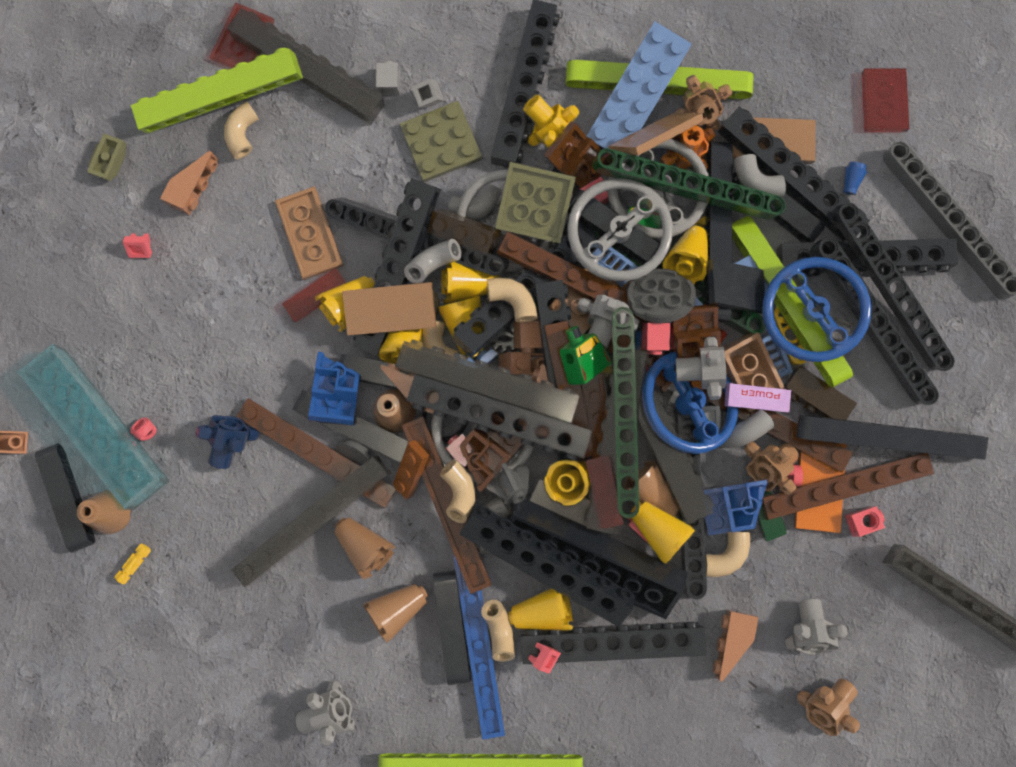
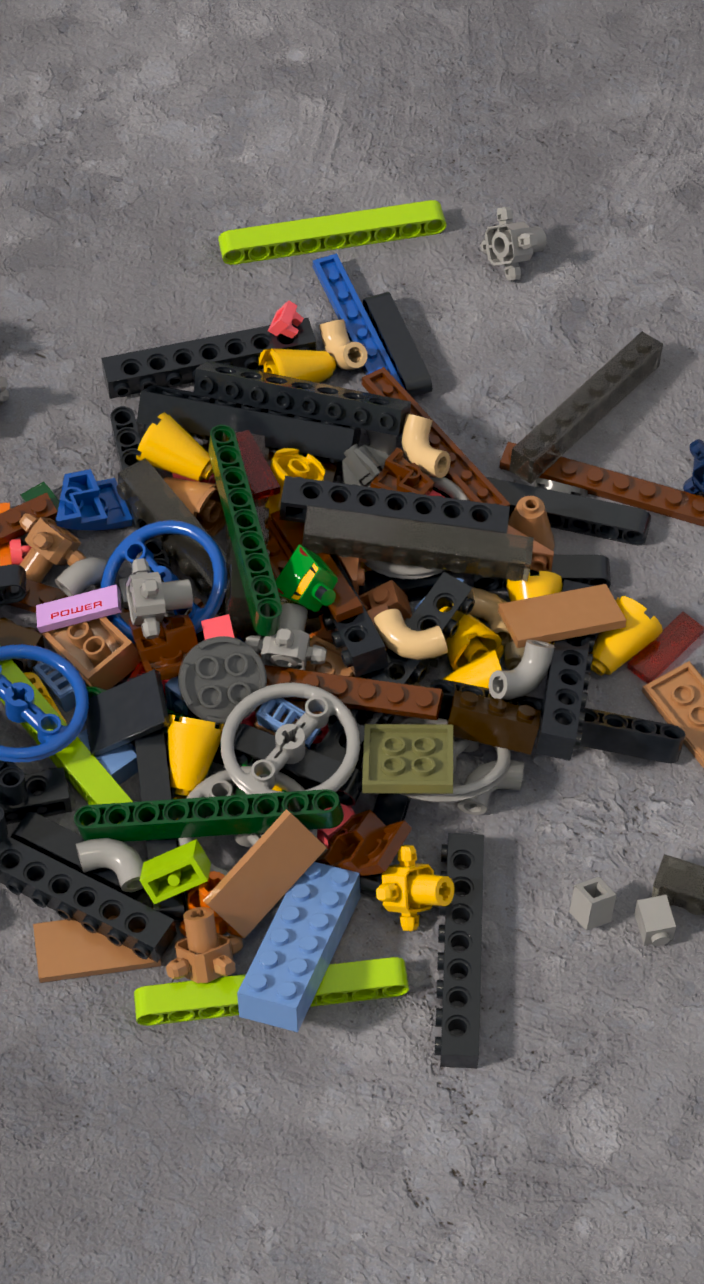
camera: 165 degrees right, 25 degrees down
(333, 392) = (605, 531): blue slope -> none
(363, 546) = (520, 394): medium nougat cone -> none
(395, 609) = (466, 344): medium nougat cone -> none
(410, 469) = (487, 465): dark orange plate -> none
(441, 141) = (555, 857): olive plate -> none
(718, 149) = (175, 871): none -> lime brick
(732, 558) = (90, 452): tan cylinder -> none
(737, 636) = (66, 384): nougat slope -> none

